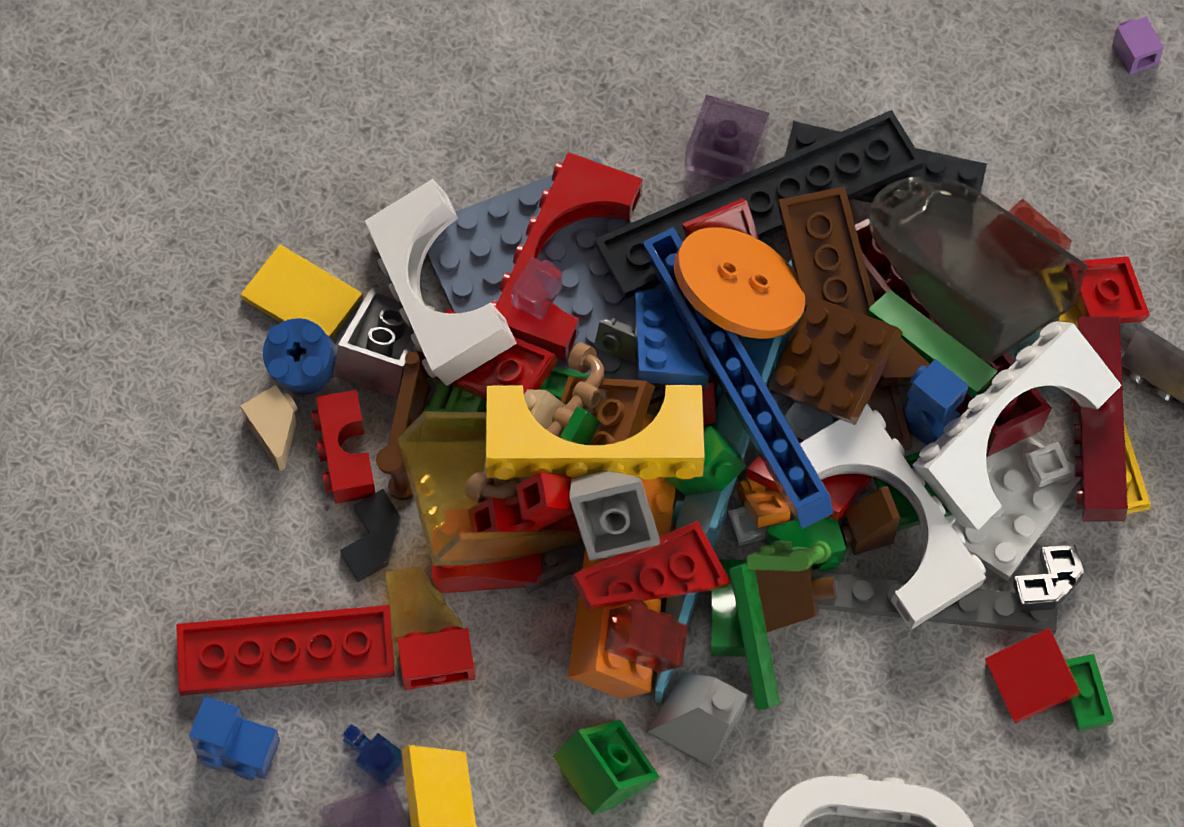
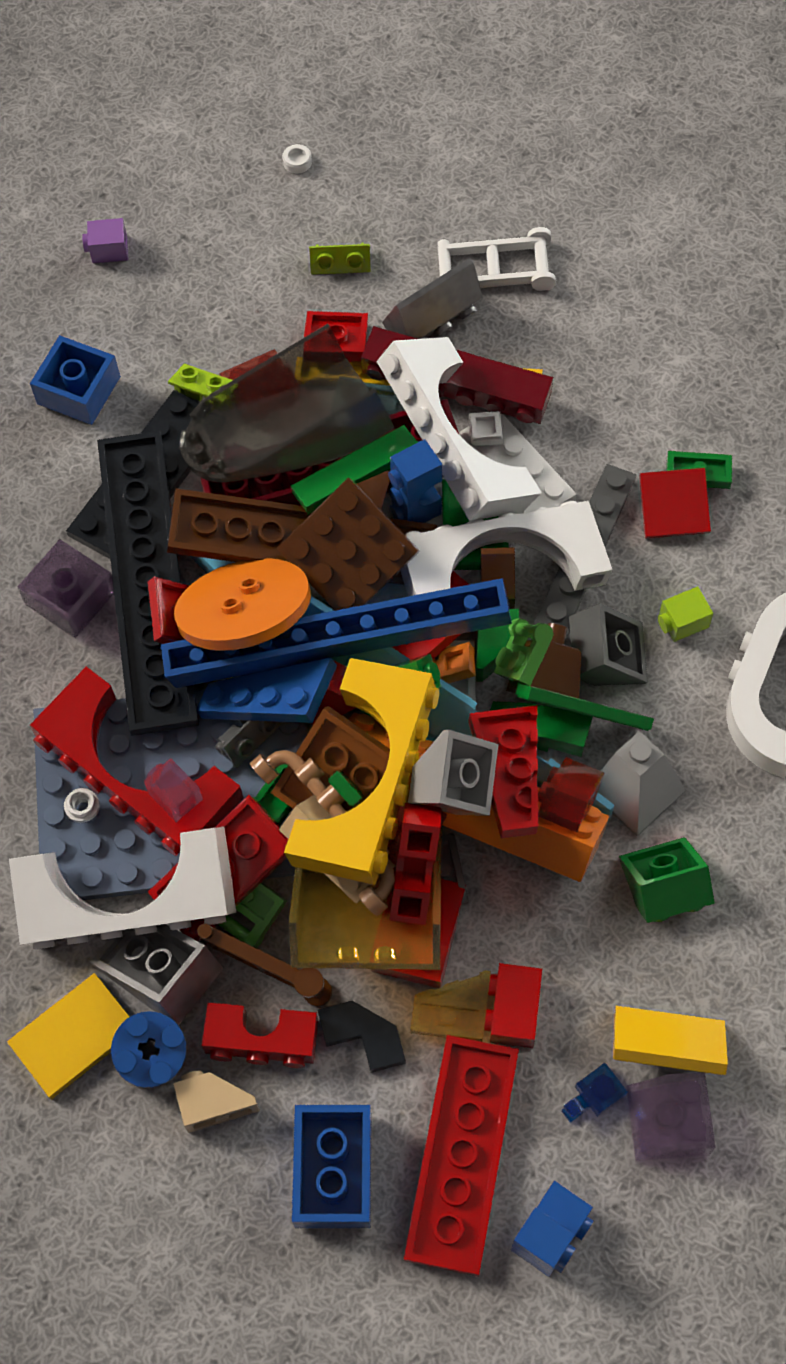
camera: 70 degrees left, 0 degrees up
(239, 539) = (332, 1166): none -> blue brick
(511, 217) = (79, 796): none -> white plate
(839, 651) = (609, 646): none -> dark grey slope
(903, 716) = (685, 614): none -> lime brick
(958, 70) = (75, 379): none -> blue brick
(1000, 180) = (196, 382): none -> lime hinge
(1061, 576) = (585, 451): tile -> none

